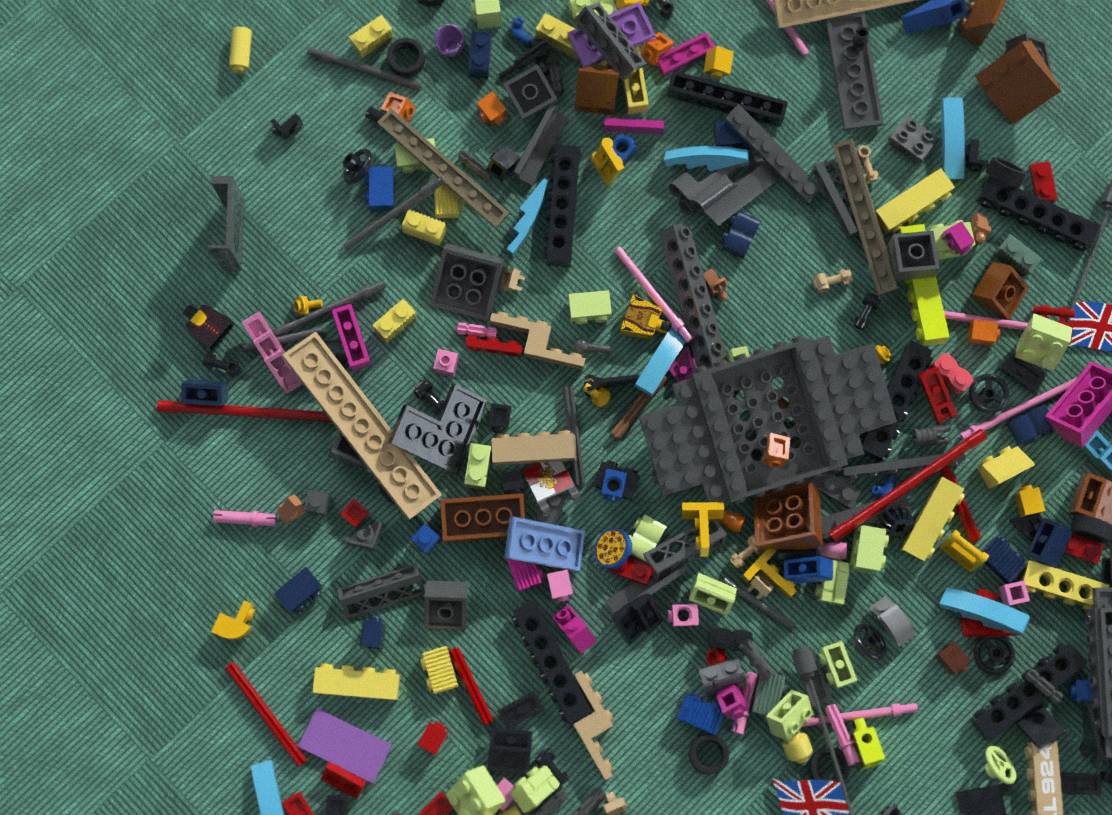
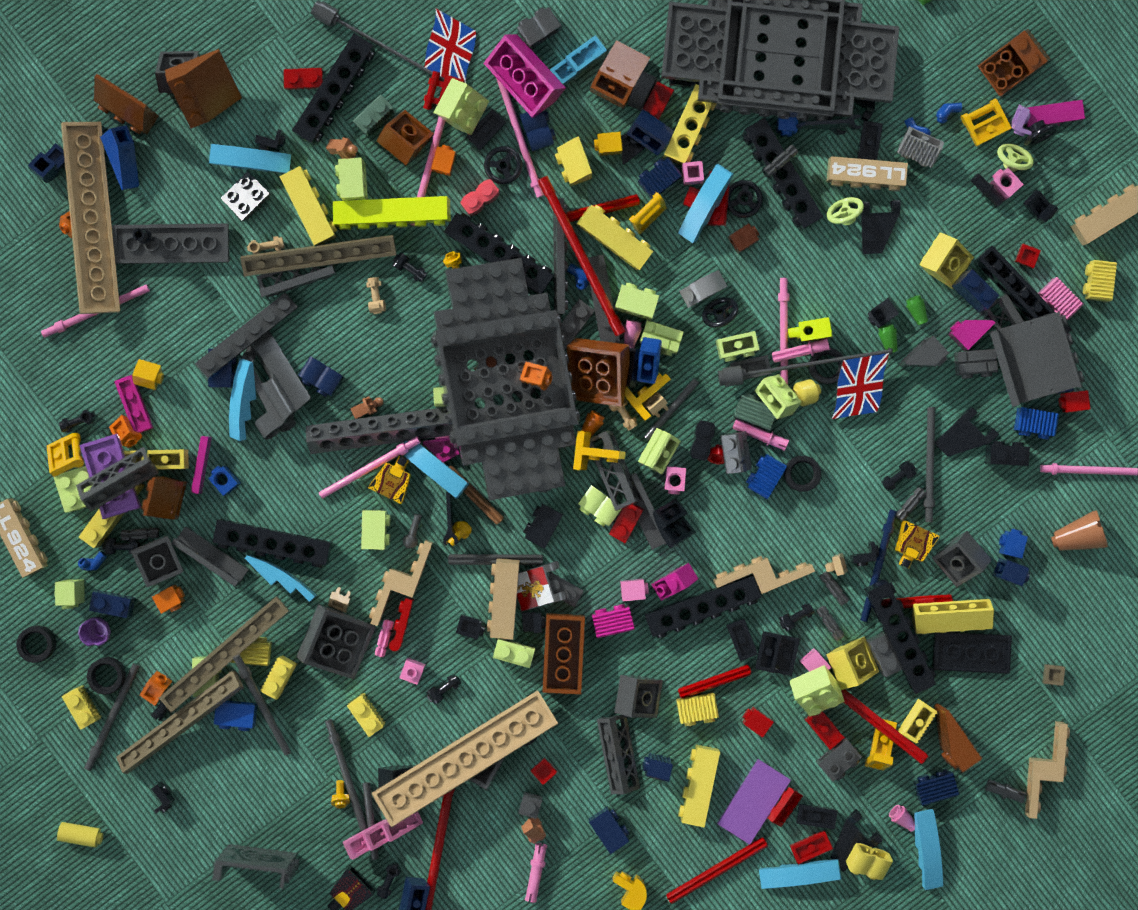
camera: 75 degrees left, 10 degrees up
(351, 337) = (377, 757): dark pink brick -> none
(353, 163) = (209, 738): black piece -> none
(367, 133) = (179, 722): none -> dark tan plate
(368, 537) = (568, 761): dark grey slope -> none
(426, 539) = (576, 708): blue brick -> none
(444, 439) = (486, 682): plate -> none
(474, 165) = (222, 620): dark grey axle -> none
(502, 163) = (223, 595): black brick -> none
(528, 57) = (120, 557): black axle -> none
(534, 789) = (815, 636): yellowish green brick -> none
(544, 544) = (595, 600): medium blue tile -> none
(611, 166) = (240, 493): yellow plate -> none
(613, 548) = (606, 537): tile -> none
(619, 478) = (540, 532): blue brick -> none
(726, 97) = (185, 372): black brick -> none
(732, 701) = (759, 447): dark pink brick -> none
(757, 659) = (725, 420): dark grey pin -> none
(896, 521) = (613, 272): black gear -> none
(914, 255) = (365, 218): dark grey brick -> none
(928, 436) = (536, 228): dark grey hinge -> none
(937, 395) = (498, 214): red plate -> none
(958, 238) = (355, 174): dark pink brick -> none
(1005, 172) = (290, 114): black tyre -> none
(1040, 727) = (815, 168): black piece -> none

